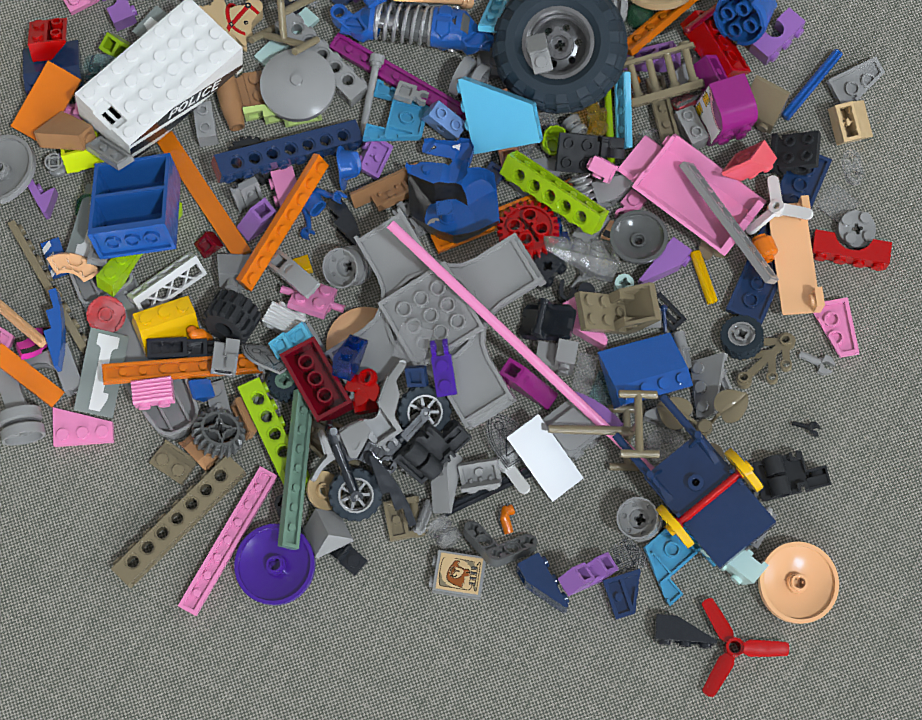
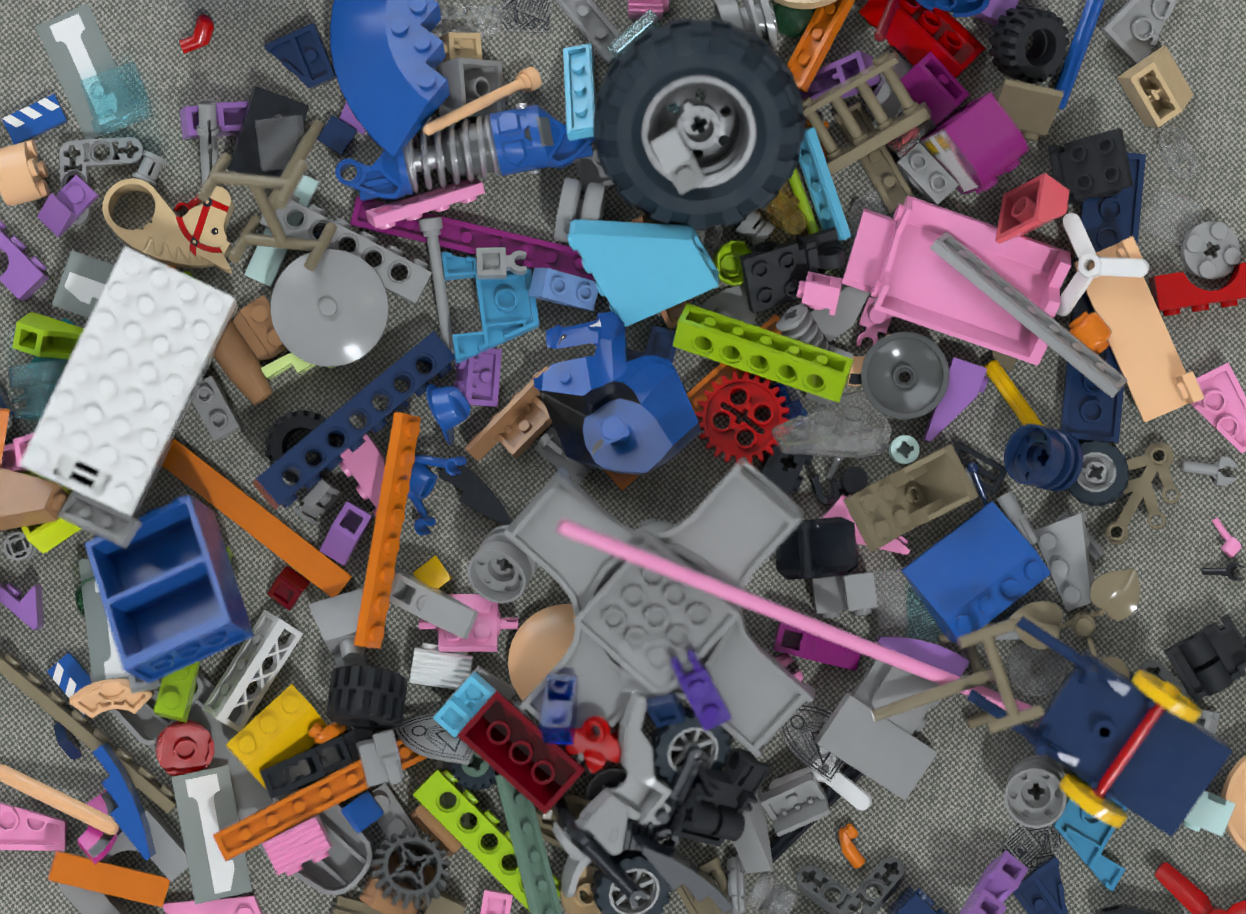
camera: 20 degrees left, 15 degrees up
(35, 289) = (67, 741): none -> dark blue tile
(371, 46) = (414, 206): none -> bright pink plate
(710, 312) = (1043, 457): none -> dark blue wheel
(791, 67) = (1047, 46): none -> black tyre
(816, 412) = (1232, 545): none -> bright pink hand

